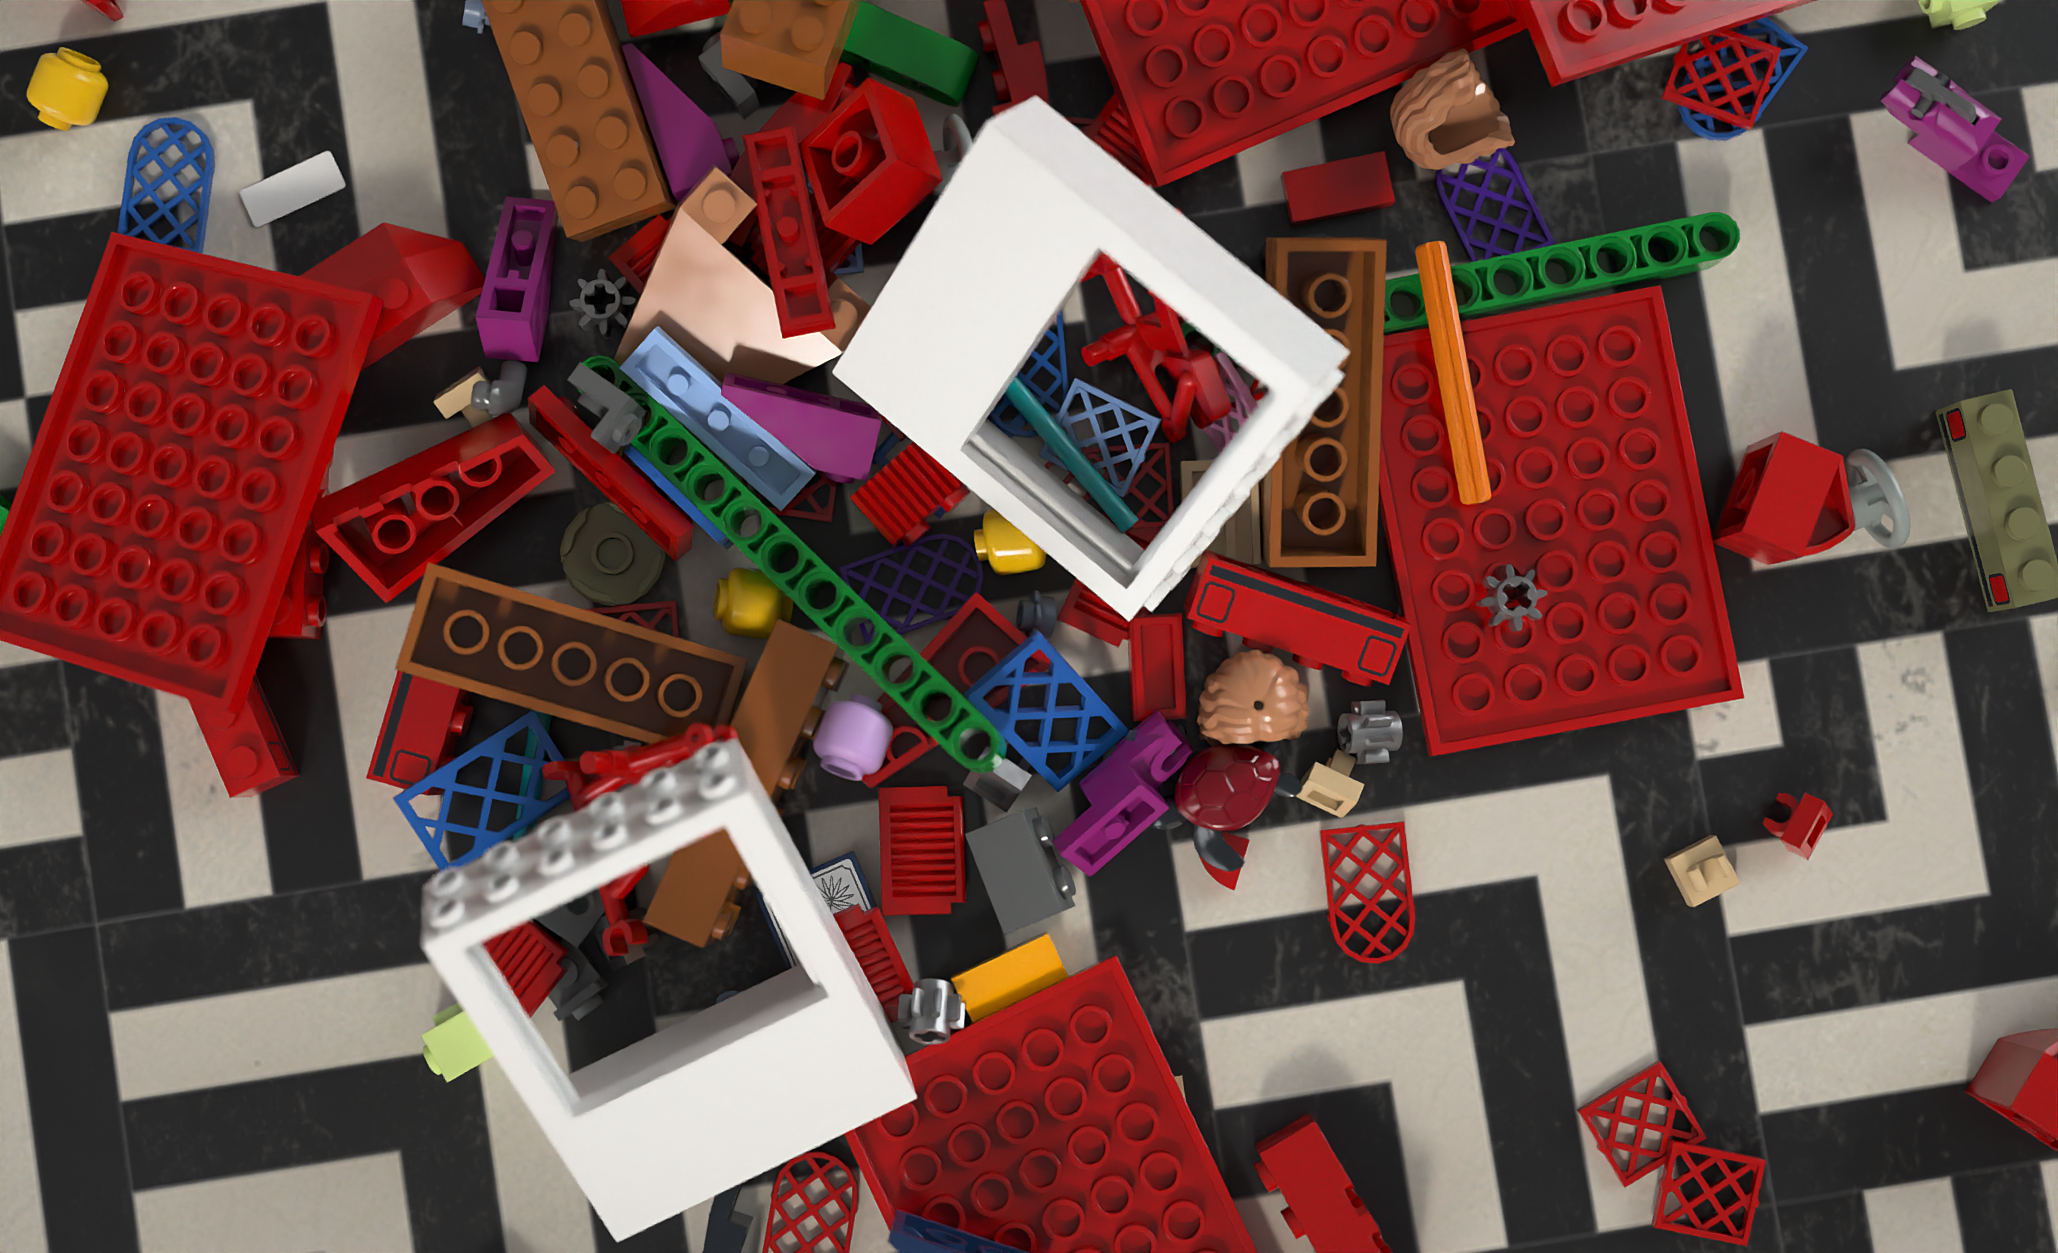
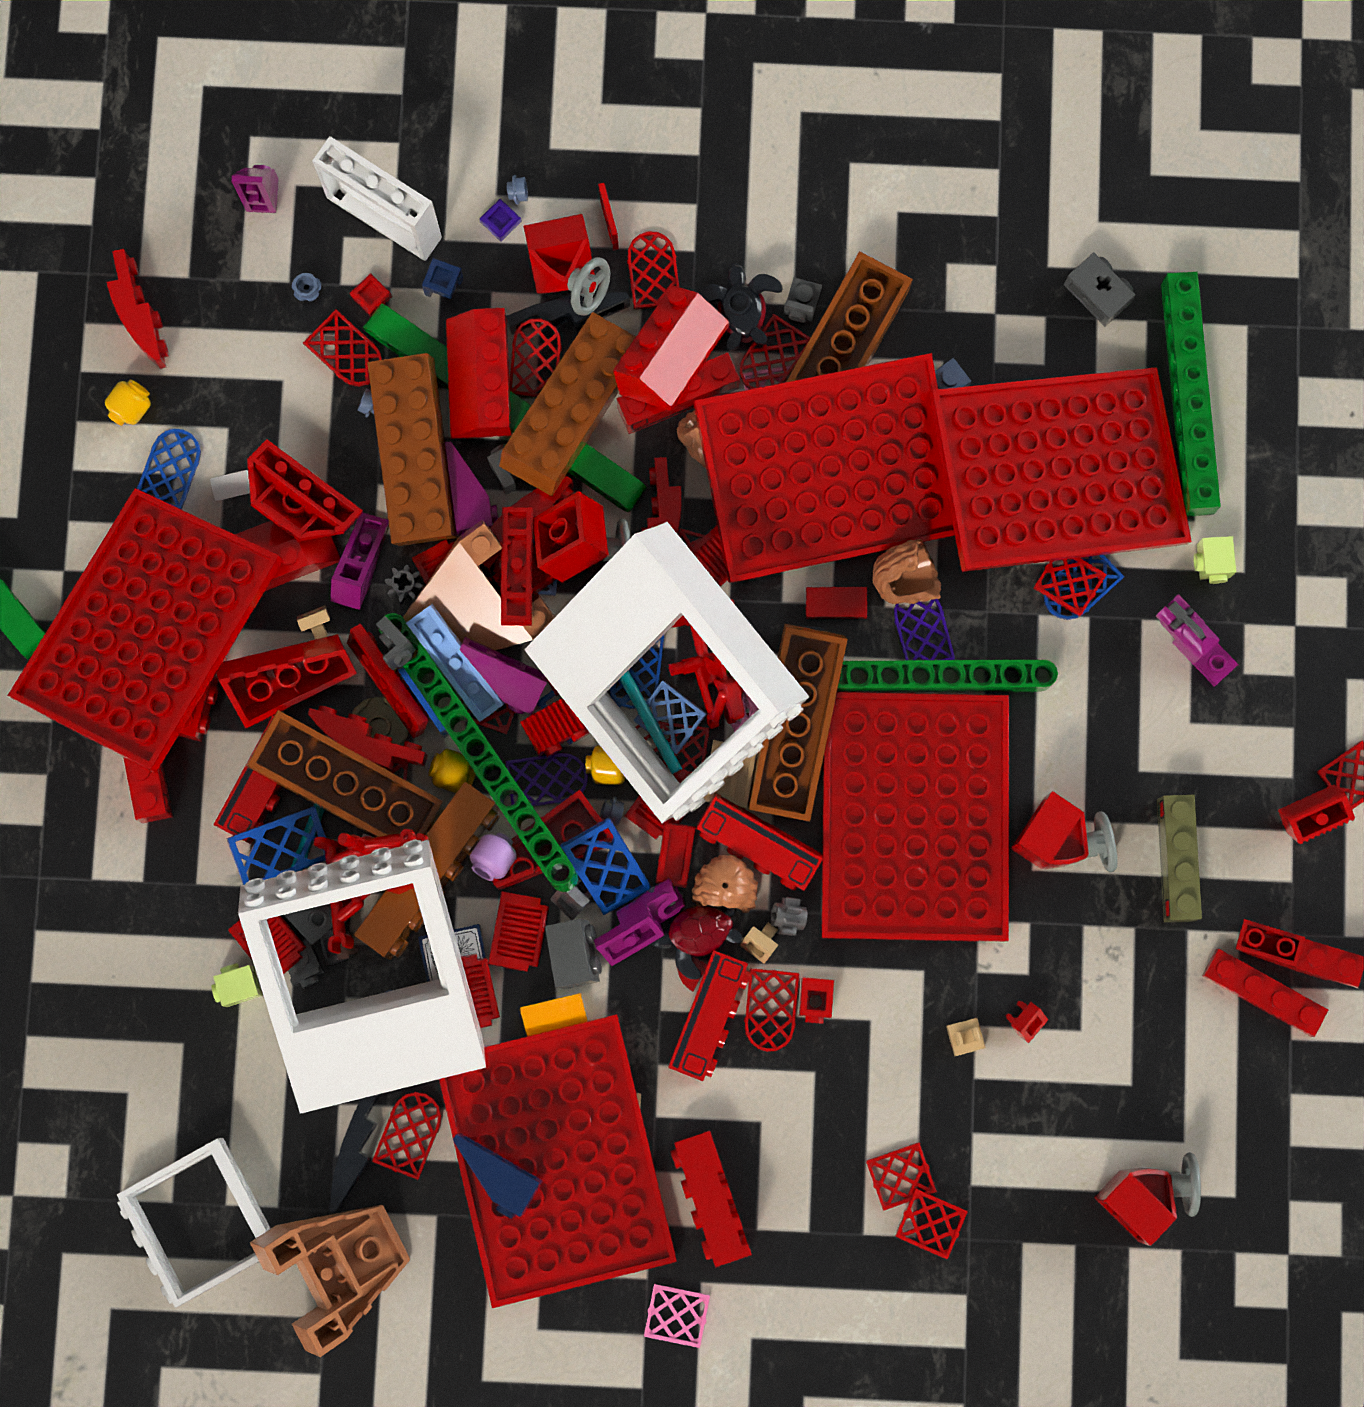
camera: 15 degrees right, 5 degrees down
(385, 188) = (296, 496): none -> red wedge
(503, 394) = (338, 623): dark grey arm -> none
(576, 579) = (356, 733): none -> red slope
(931, 1011) = (504, 1023): flat silver gear -> none
(1269, 928) = (708, 1016): none -> red brick
(1453, 372) = (877, 721): orange axle -> none
(1458, 846) = (820, 987): none -> red brick
(1526, 597) = (892, 857): flat silver gear -> none

